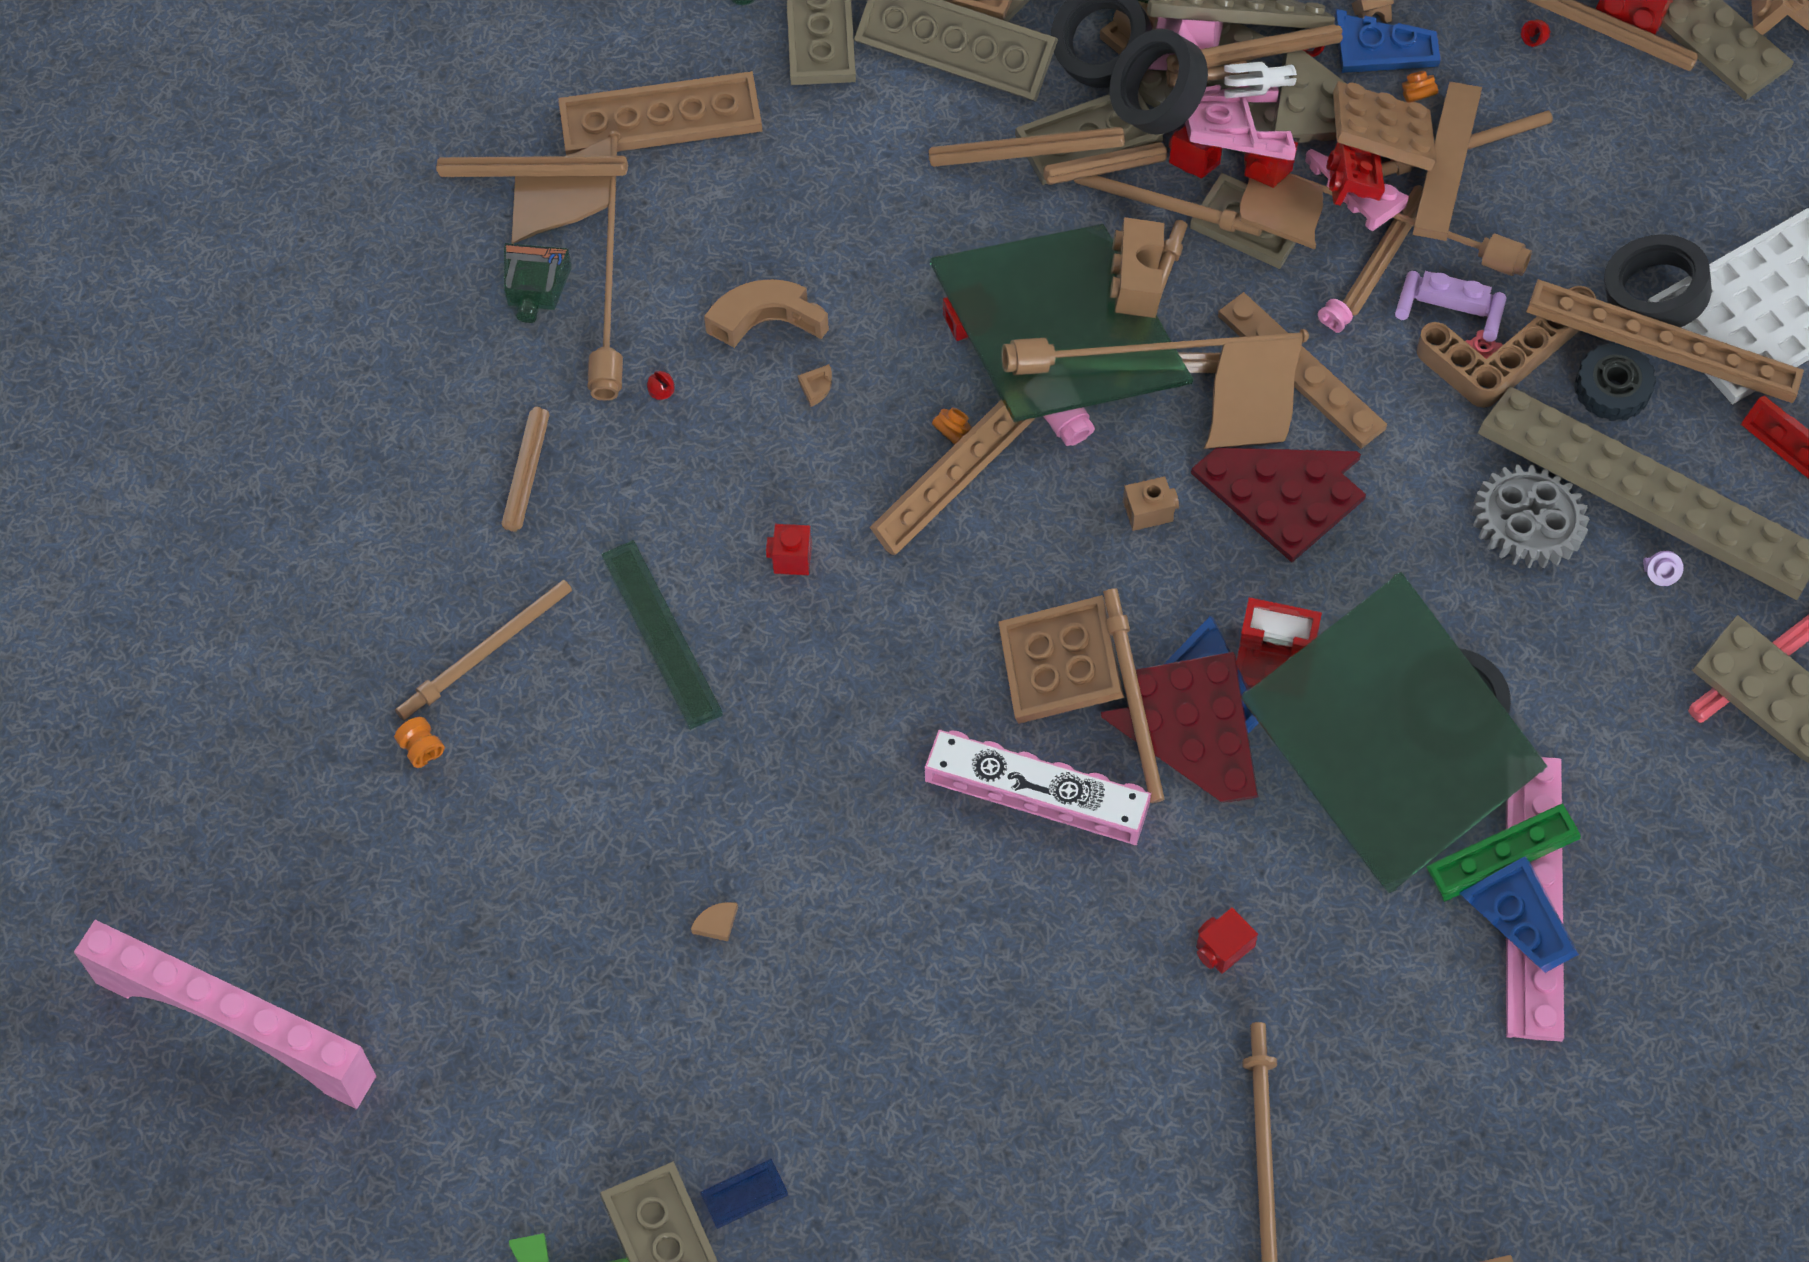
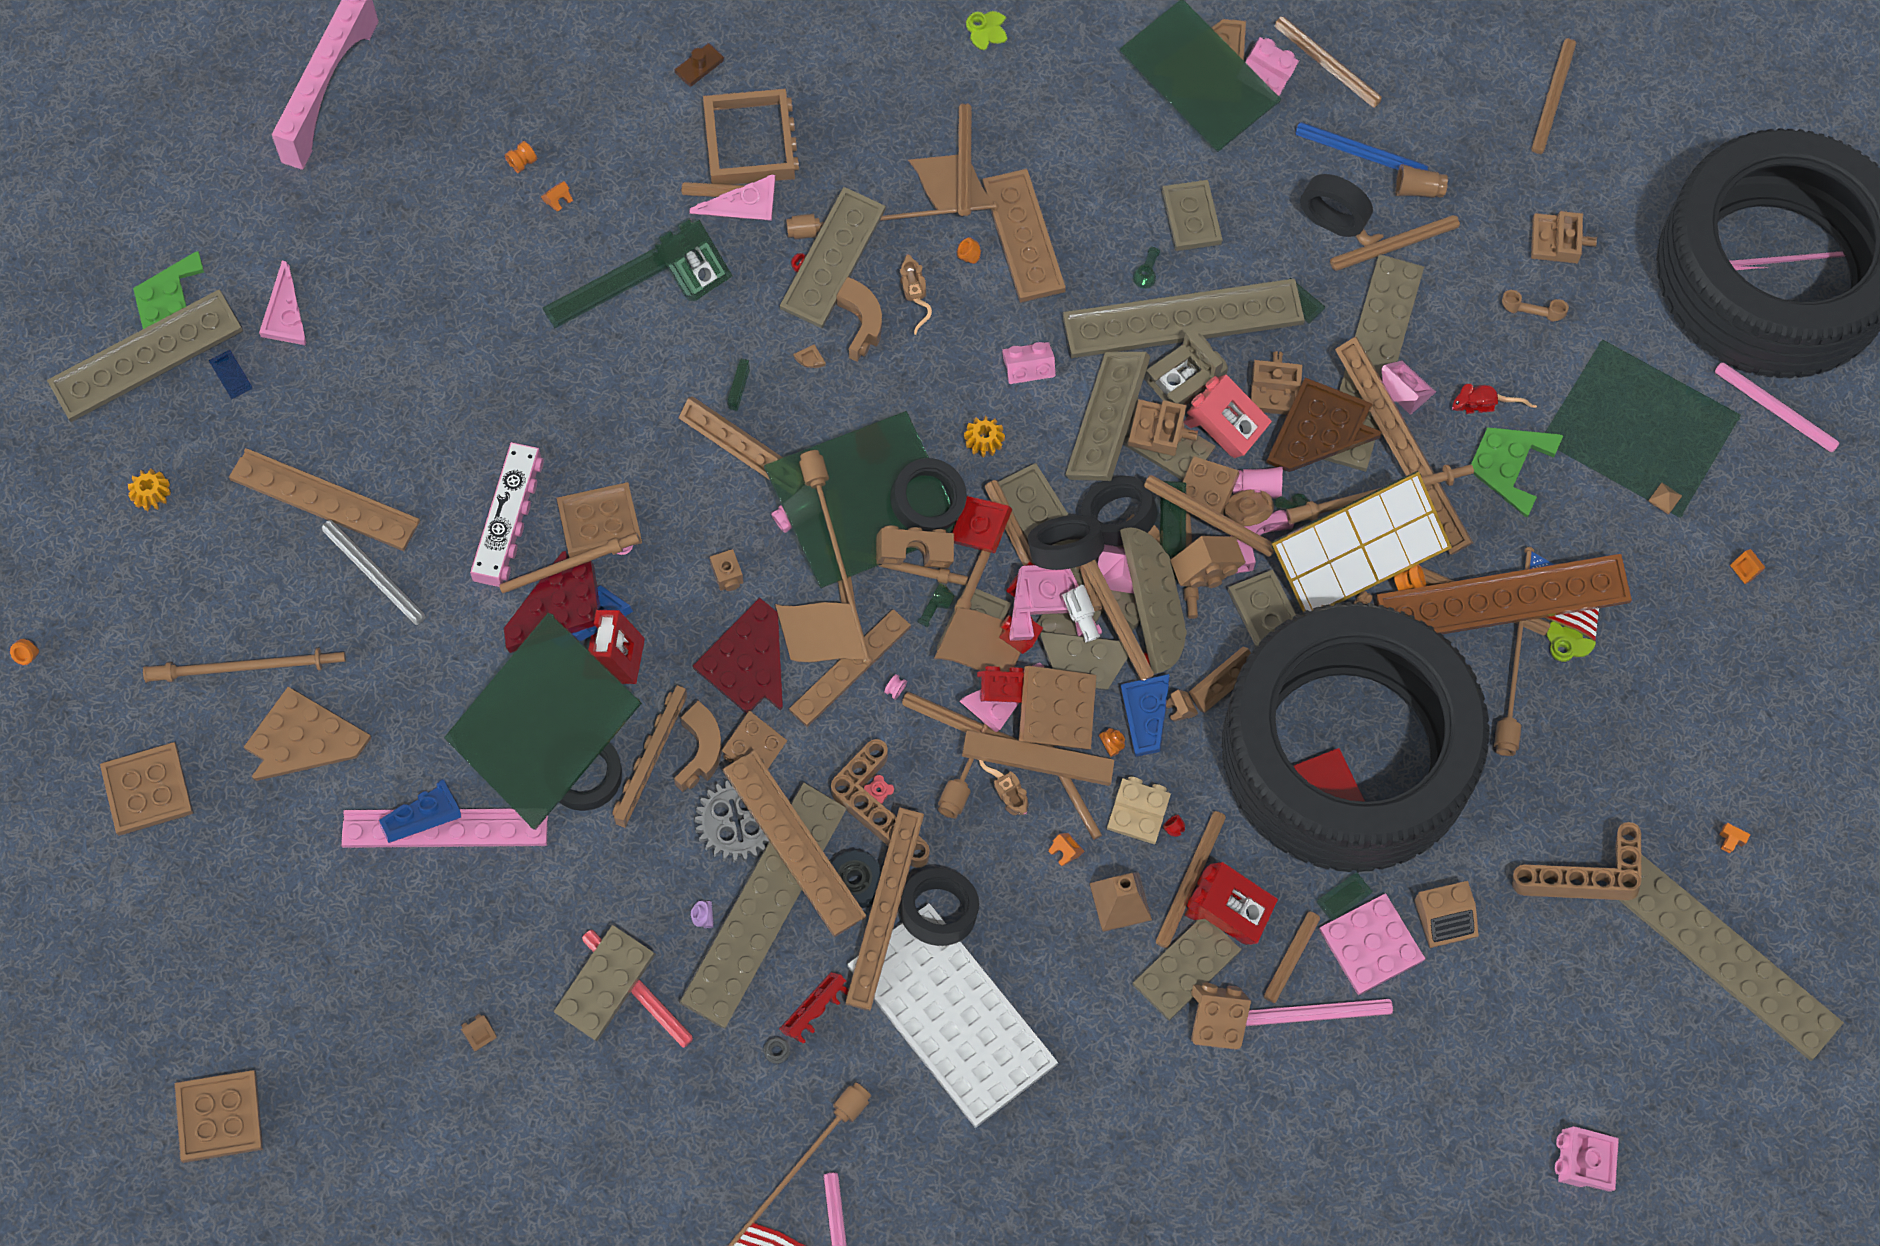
camera: 80 degrees right, 5 degrees up
(299, 493) = (699, 64): none -> reddish brown tile
(319, 130) = (989, 31): none -> lime plate
(430, 691) = (560, 159): medium nougat bar -> none
(451, 477) = (750, 174): none -> medium nougat window
(493, 695) = (559, 191): none -> orange tile
(534, 278) = (874, 174): clear green torso -> none
(553, 442) = (748, 202): none -> bright pink wing
(645, 507) = (675, 244): none -> clear green brick
(649, 1107) = (282, 315): none -> bright pink wing
(667, 335) = (832, 257): none -> dark tan plate
(674, 178) = (969, 251): none -> orange tile
(716, 921) = (407, 339): medium nougat tile -> none
(725, 244) = (914, 285): none -> medium nougat animal
(790, 549) = (672, 351): red brick -> none
(854, 470) = (738, 384): none -> clear green tile
(857, 124) = (1029, 362): none -> bright pink bracket
(952, 424) = (784, 444): orange plate -> none
(968, 183) = (980, 443): none -> light orange gear
(981, 1056) = (324, 499): none -> medium nougat plate
(1027, 146) = (1015, 469): medium nougat axle -> none
(1059, 273) = (941, 471): none -> black tyre
(1107, 190) = (981, 524): none -> red tile
(1113, 984) = (383, 582): none -> light grey axle
(1209, 250) = (941, 599): none -> clear green bar
(1225, 940) = (401, 633): red brick -> none
(1385, 1094) = (302, 737): none -> medium nougat wing
(1418, 489) = (754, 735): none -> medium nougat hinge
(1418, 541) = (704, 728): none -> medium nougat arch
(1453, 294) = (921, 768): lavender plate -> none
(1476, 635) = (645, 765): none -> medium nougat plate
(1489, 196) = (1009, 791): none -> medium nougat animal
(1514, 66) = (1139, 810): none -> tan plate
(1528, 838) = (471, 804): green tile -> none
(1570, 142) = (1068, 846): none -> orange tile
(1574, 436) = (794, 843): none -> medium nougat plate
(1638, 90) = (1120, 901): none -> medium nougat slope

